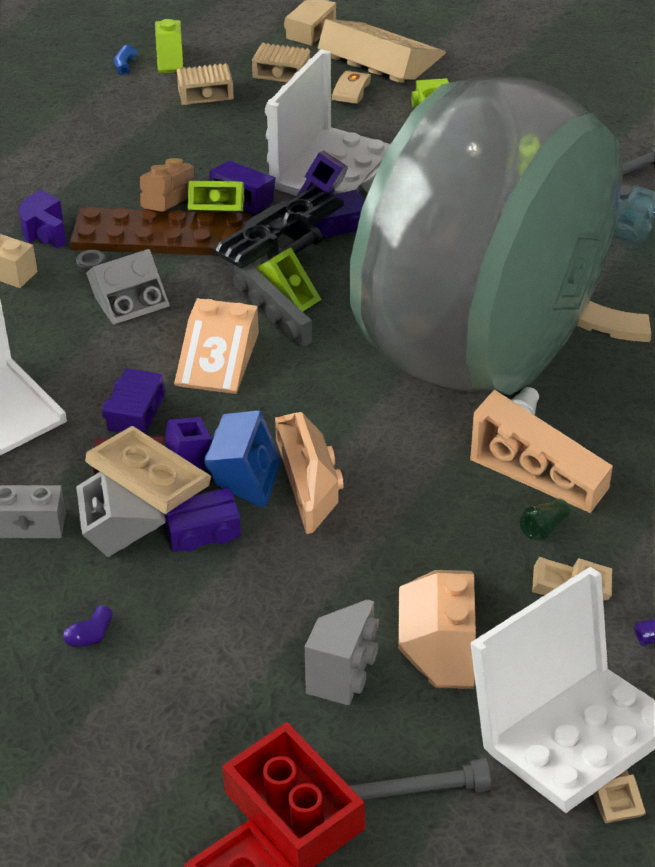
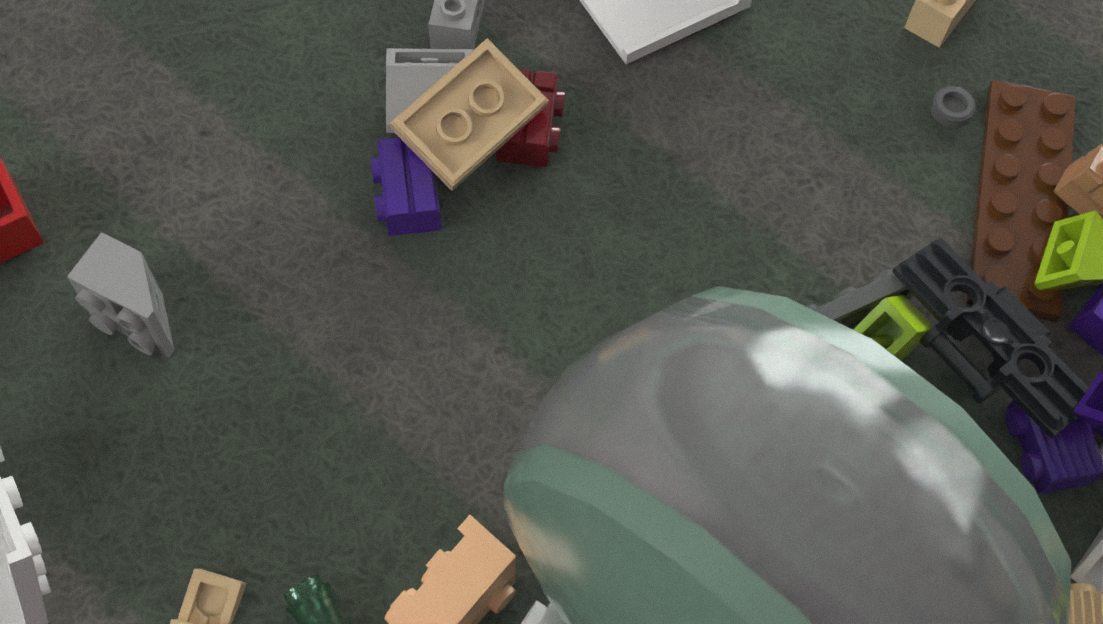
camera: 95 degrees right, 20 degrees up
(42, 219) = (1044, 39): dark purple brick -> none
(89, 631) = (271, 70): dark purple arm -> none
(128, 287) = (879, 138): light grey slope -> none
(134, 400) = (639, 131): dark purple brick -> none
(189, 440) = (522, 187): dark purple brick -> none
(217, 345) = (739, 236): light nougat slope -> none
(244, 457) = (489, 234): blue slope -> none
(308, 468) = (468, 313): light nougat wedge -> none
(439, 627) = (175, 435): light nougat wedge -> none

